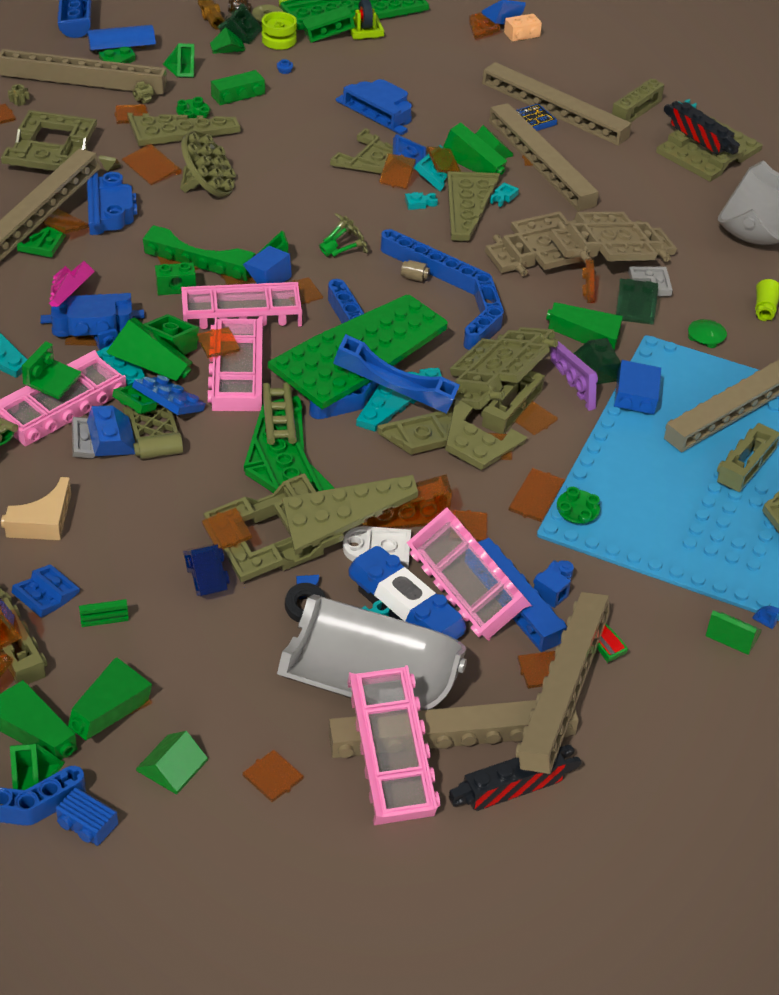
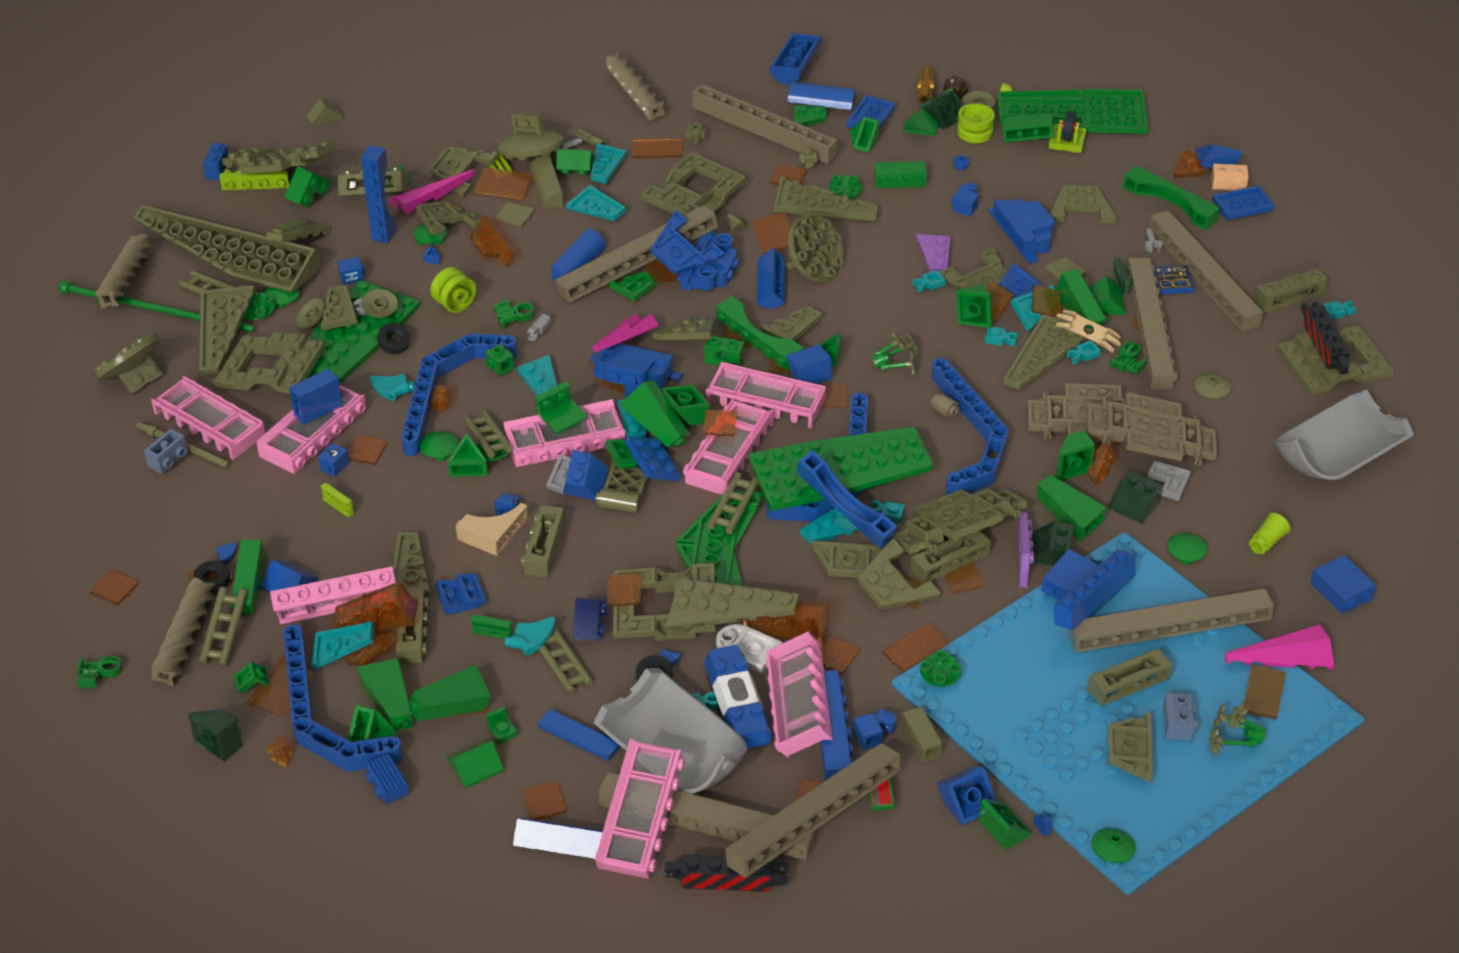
camera: 30 degrees right, 0 degrees up
(40, 485) = (506, 503): none -> blue bracket
(77, 197) = (677, 252): none -> blue wing
(114, 531) = (534, 561): none -> olive brick
(126, 267) = (687, 329): none -> olive wing
(152, 608) = (531, 636): none -> teal arm
(170, 39) = (871, 108): none -> blue plate
(176, 204) = (771, 279): none -> blue brick
(177, 713) = (500, 725): none -> green bracket
(203, 632) = (560, 669): none -> olive bar
(227, 236) = (795, 325): none -> olive wing
(266, 692) = (578, 735): none -> blue tile
(312, 94) = (966, 199): none -> blue brick
(313, 143) = (935, 250): none -> medium lavender wing
(317, 808) = (557, 837): none -> brick
(326, 168) = (929, 280): none -> teal plate
(388, 178) = (974, 306): none -> green slope
(414, 72) = (1082, 198): none -> olive wing
(434, 132) = (1063, 265): none -> olive piece
(458, 47) = (1197, 209): none -> green arch
(486, 172) = (1099, 334): none -> tan piece
(491, 123) = (1121, 276): none -> clear green plate
(495, 94) = (1152, 242): none -> light grey bar
(542, 190) = (1128, 359): none -> green piece
(547, 44) = (1243, 202): none -> blue plate
(565, 279) = (1075, 456): none -> green slope
(602, 572) = (921, 734): none -> olive brick
(627, 195) = (1212, 386): none -> olive dish
(669, 388) = (1094, 589): none -> blue brick
(683, 613) = (964, 793): none -> blue slope

